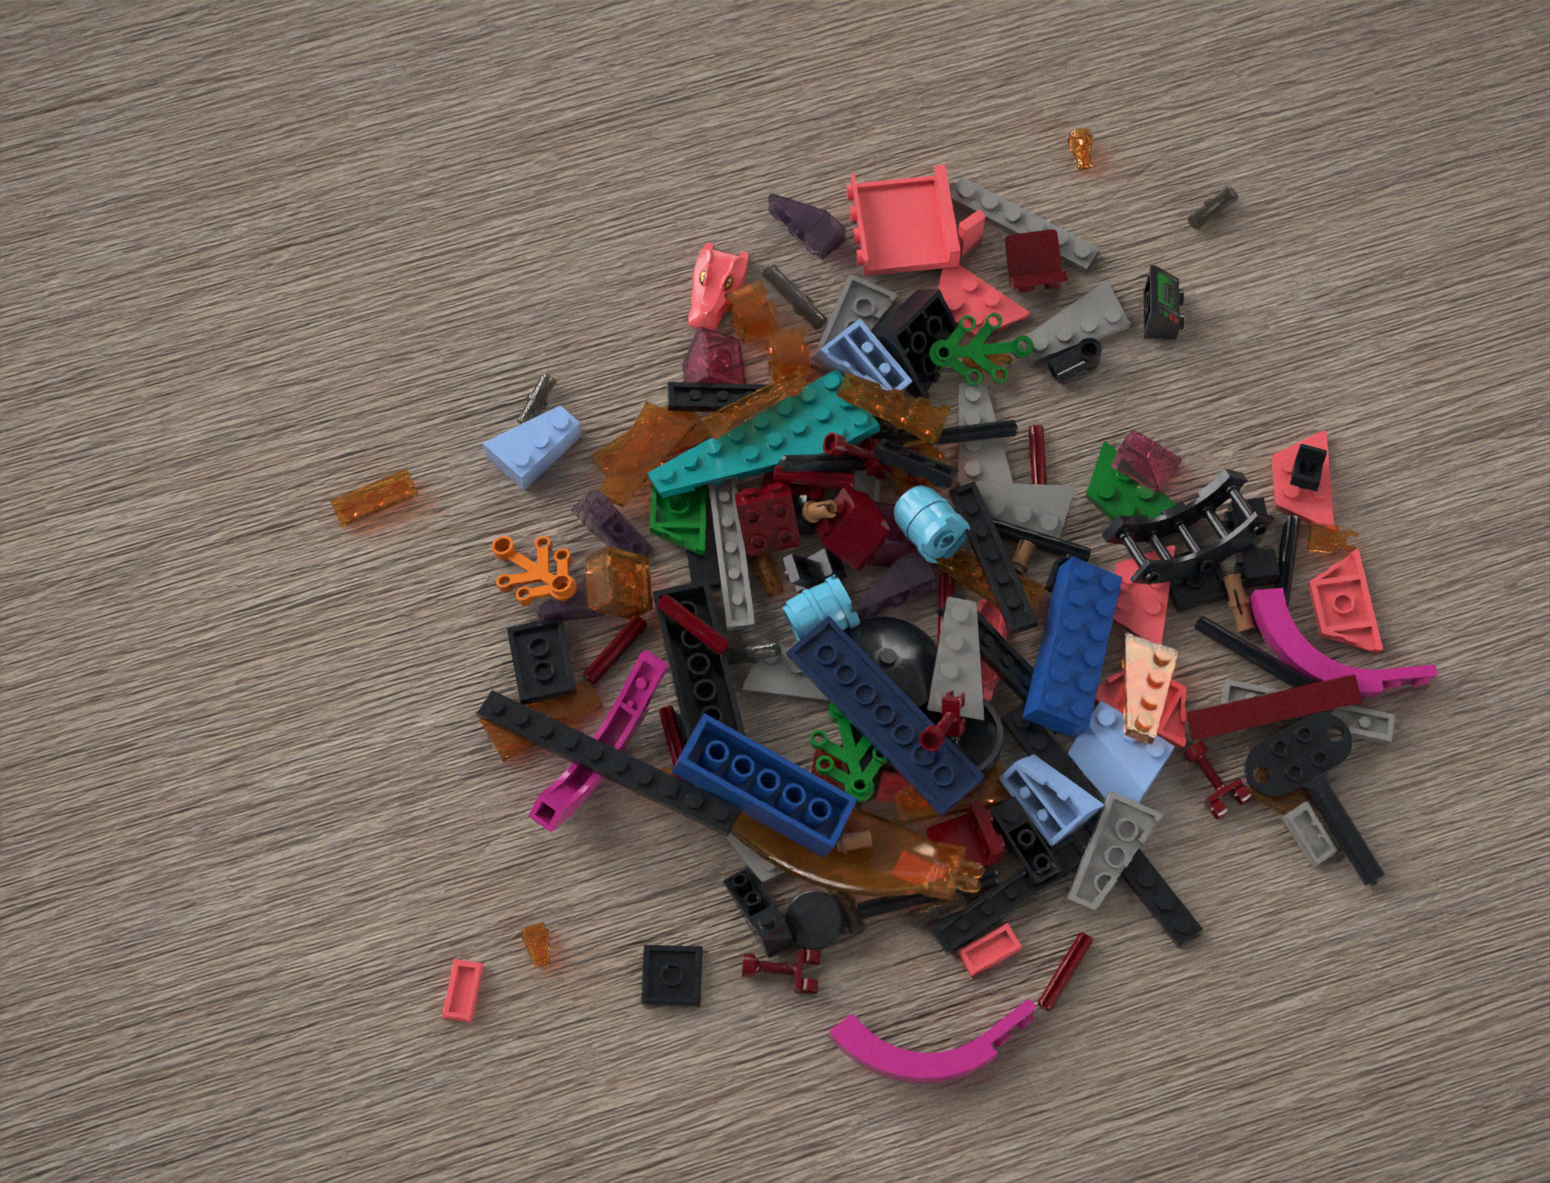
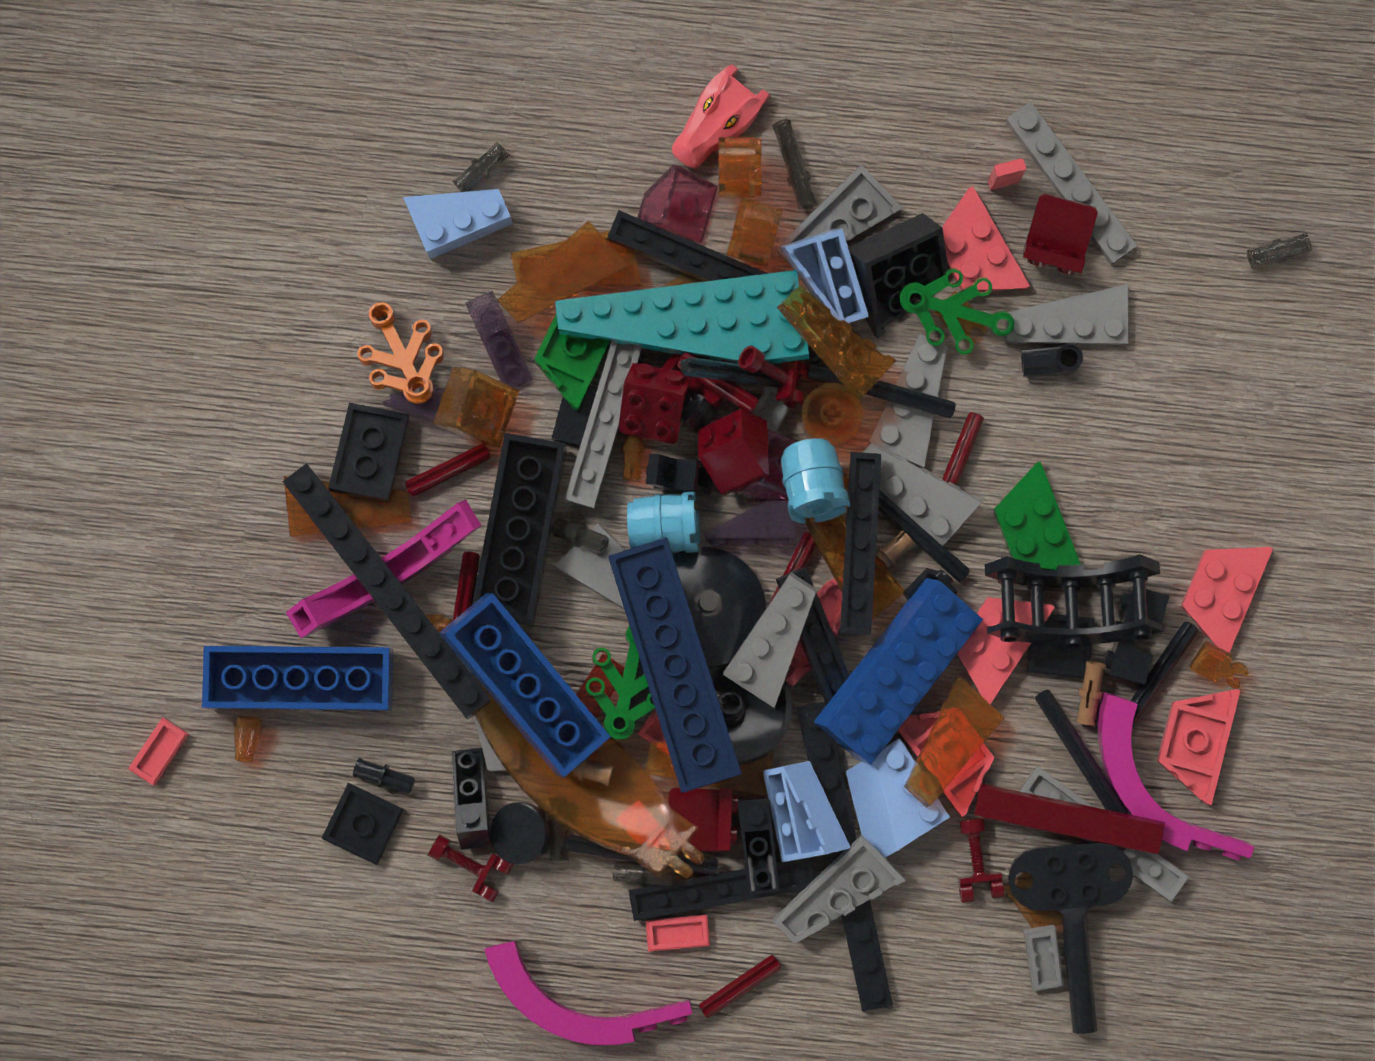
camera: 25 degrees right, 15 degrees up
(374, 498) = (275, 205): clear orange plate -> none
(561, 871) = (297, 678): none -> blue brick
(673, 925) = (383, 776): none -> black axle
(693, 624) = (528, 486): dark red axle -> none
(751, 405) = (686, 276): clear orange wing -> none
(813, 225) = (849, 93): clear purple slope -> none
(814, 511) = (702, 418): medium nougat pin -> none
(904, 224) = (944, 130): coral panel -> none
(915, 463) = (827, 412): black plate -> none
(950, 725) = (706, 716): dark red bar -> none
(1080, 144) = (1173, 120): clear orange cone -> none
(1145, 461) = (1070, 503): clear pink slope -> none
(1162, 305) = (1169, 340): black slope -> none
(1308, 467) = (1229, 585): black bracket -> none

